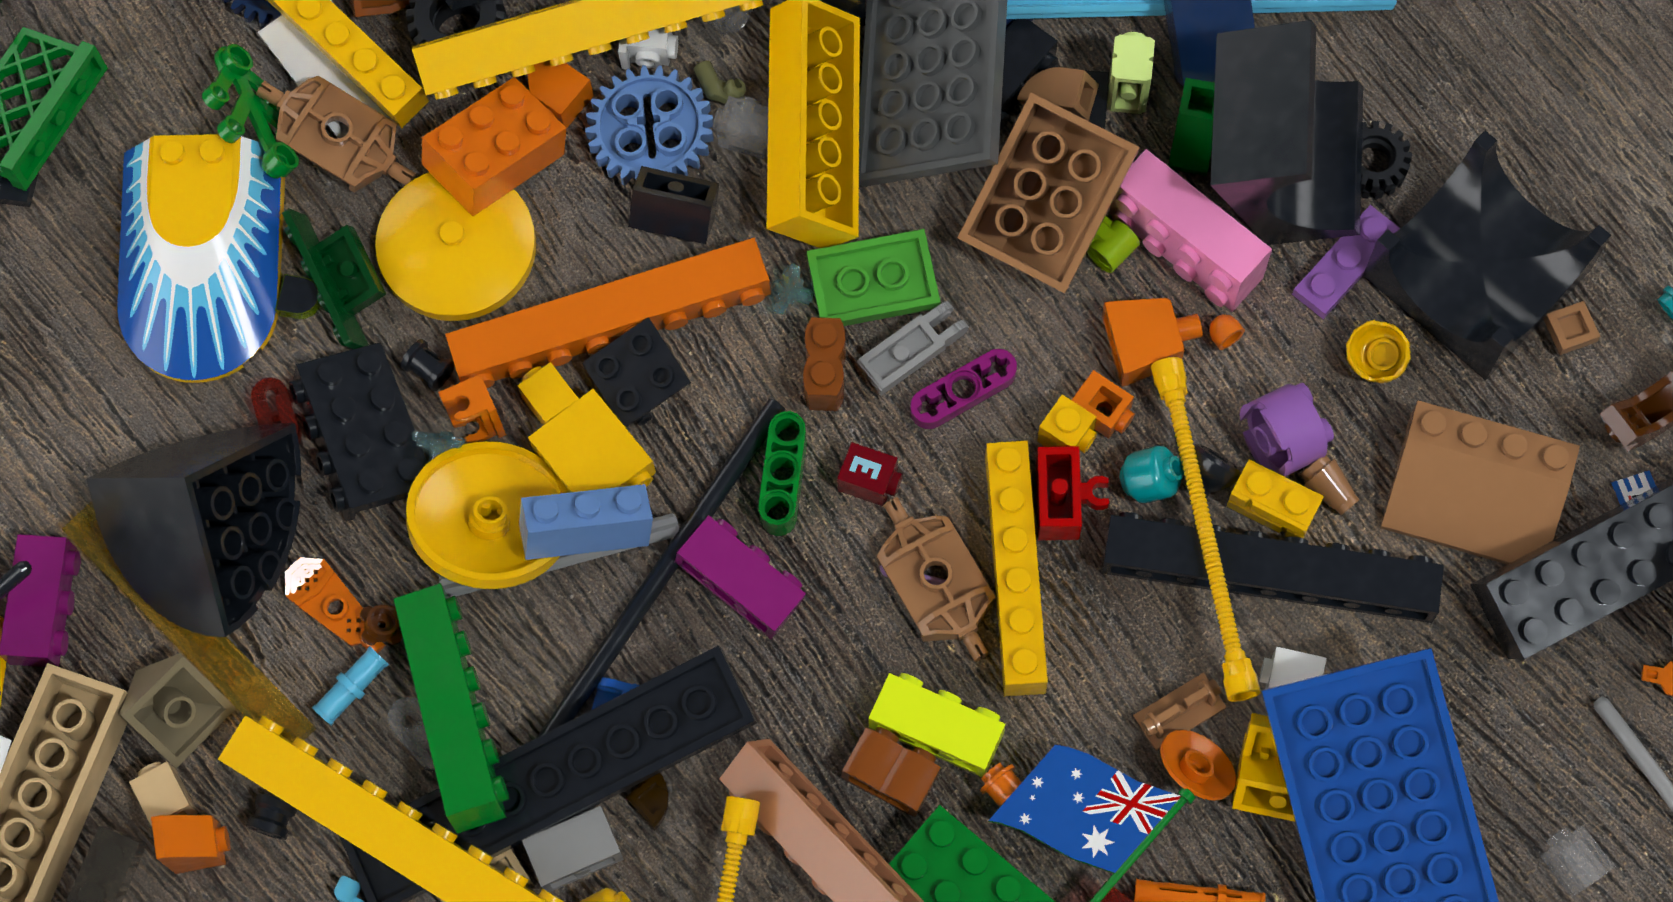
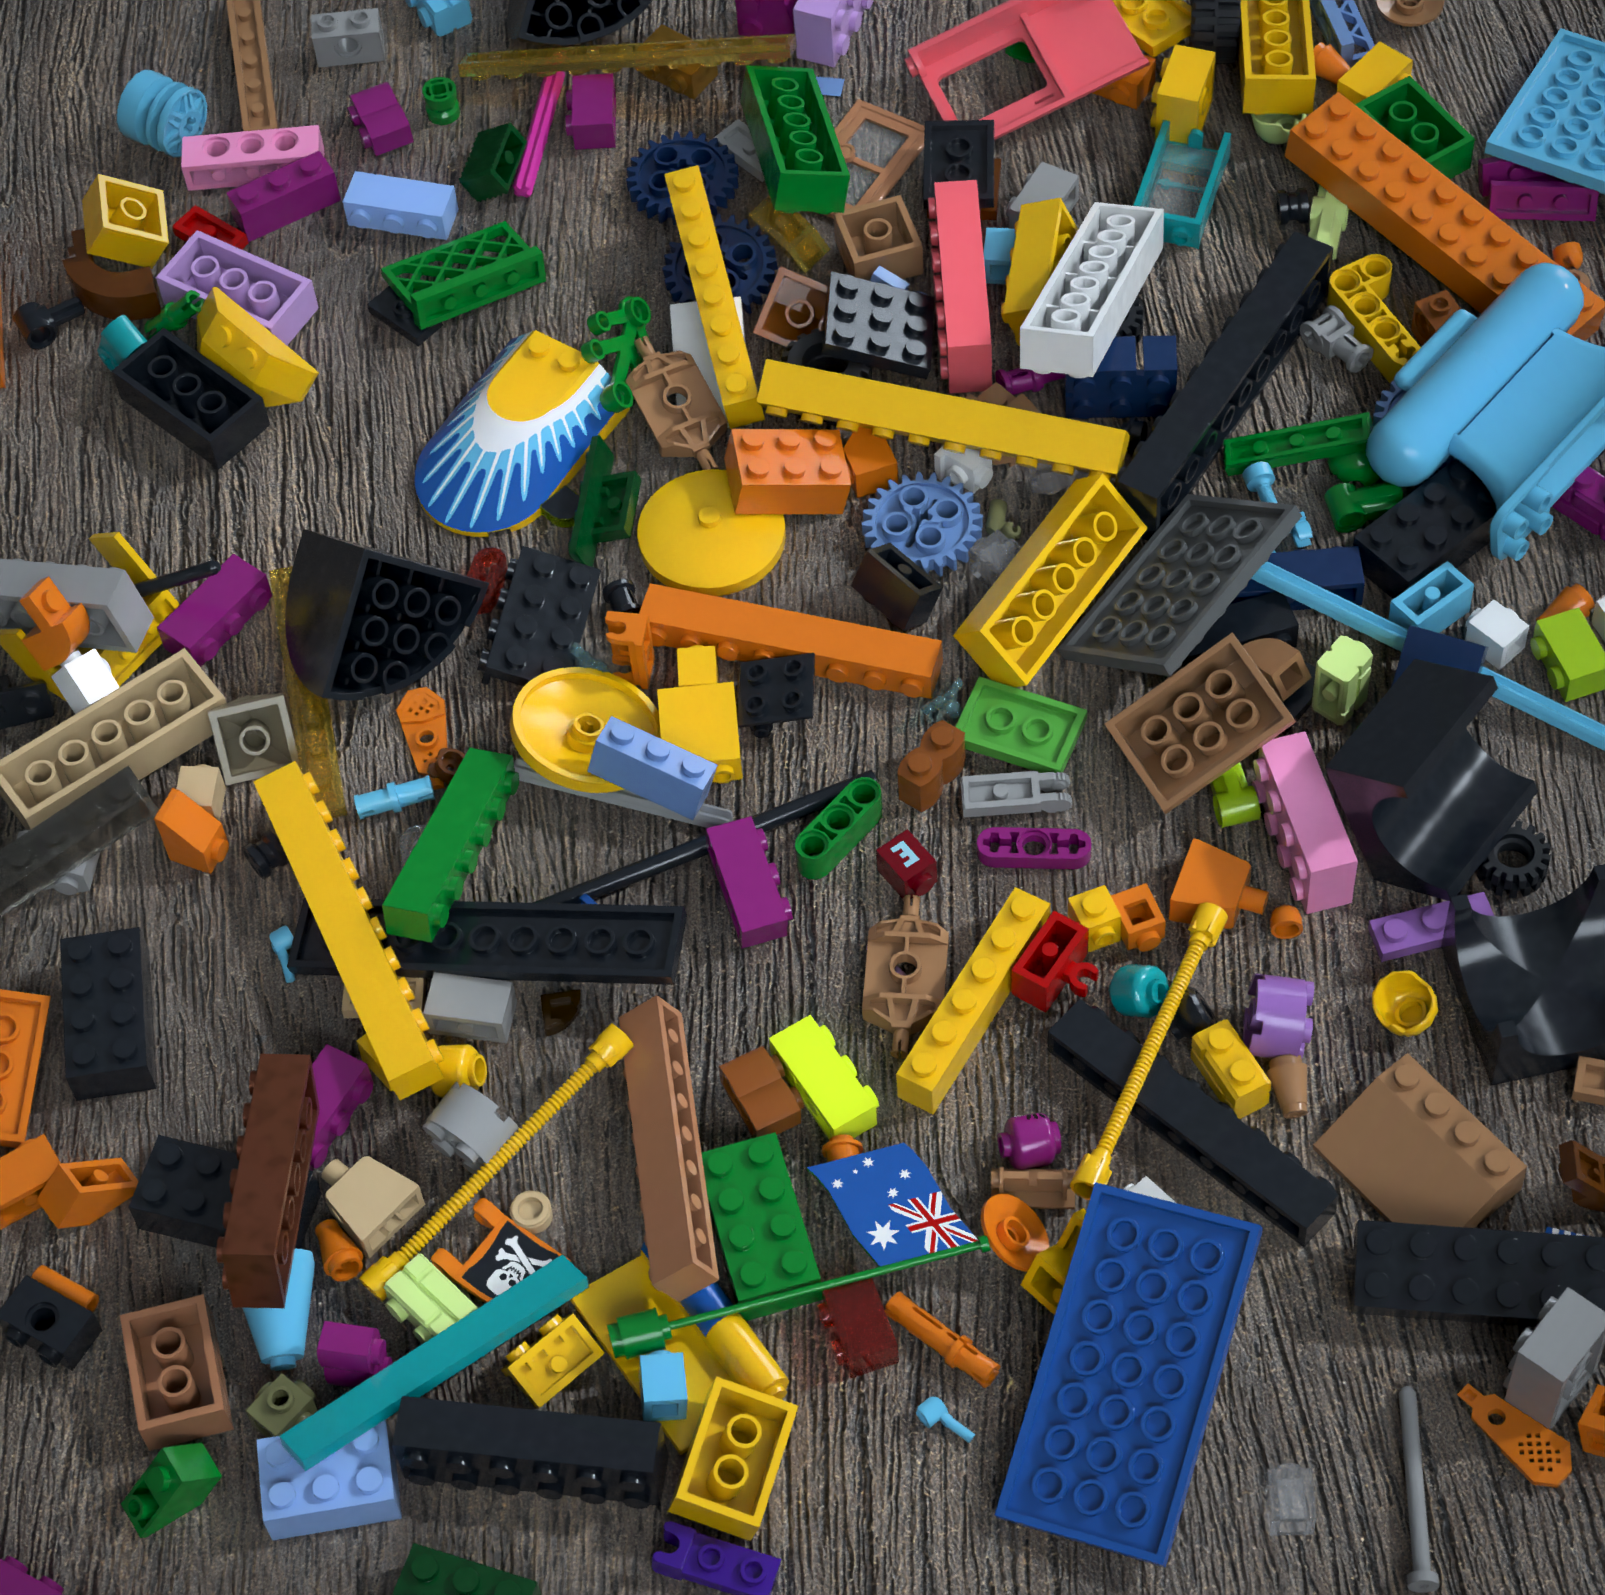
camera: 35 degrees right, 15 degrees down
(1151, 671) = (1029, 1141): none -> magenta head

